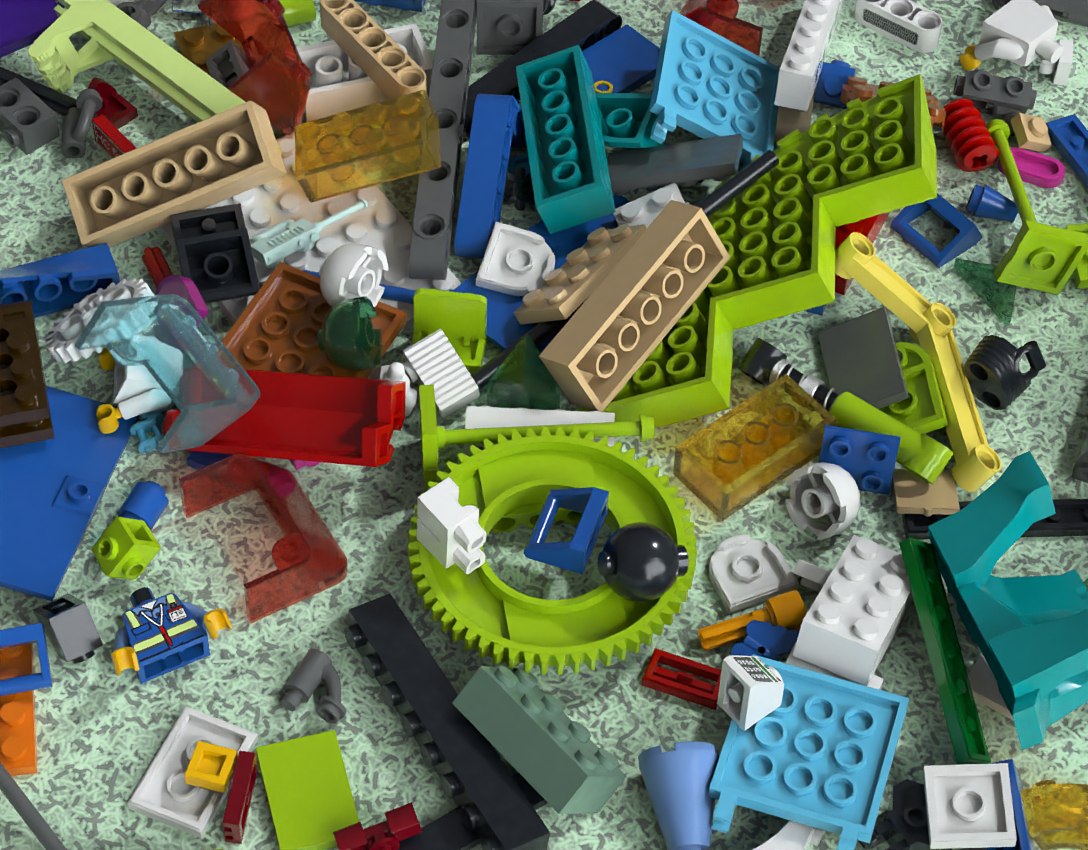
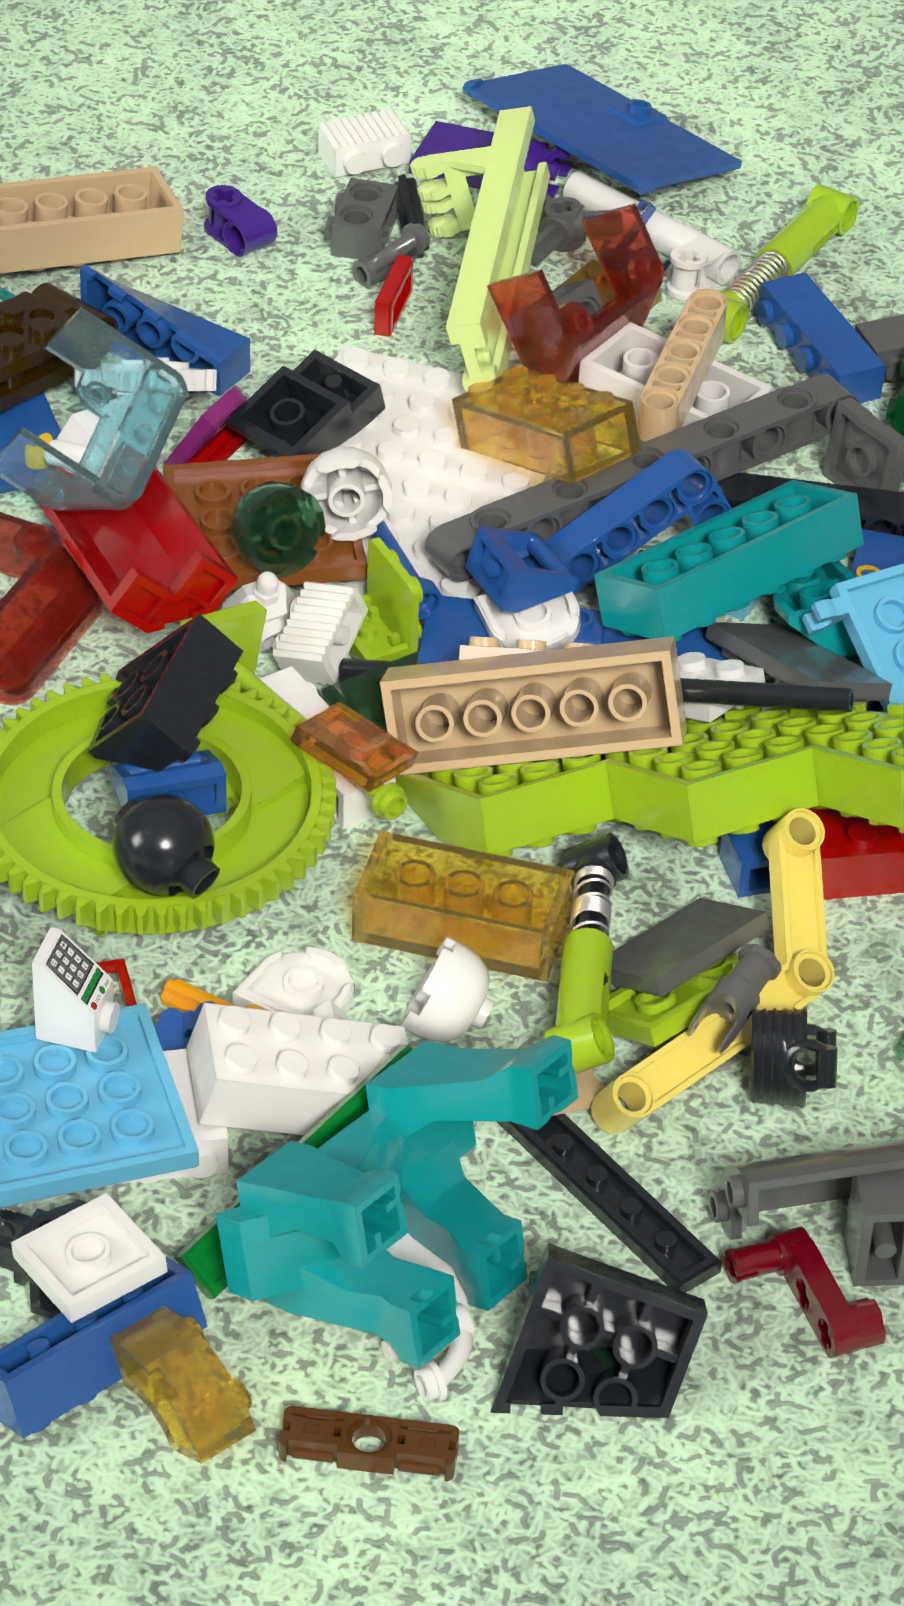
camera: 55 degrees right, 10 degrees down
(114, 106) = (443, 263): dark red tile -> none
(174, 176) = (355, 316): tan brick -> none
(291, 236) = (396, 450): light aqua piece -> none
(449, 529) = (72, 684): white hips -> none
(486, 248) = (506, 578): none -> blue tile
(509, 483) = (167, 697): none -> black wedge
(595, 415) = (354, 746): none -> clear orange tile
(863, 454) = (521, 988): blue hinge -> none
(951, 361) = (739, 991): none -> dark grey piece

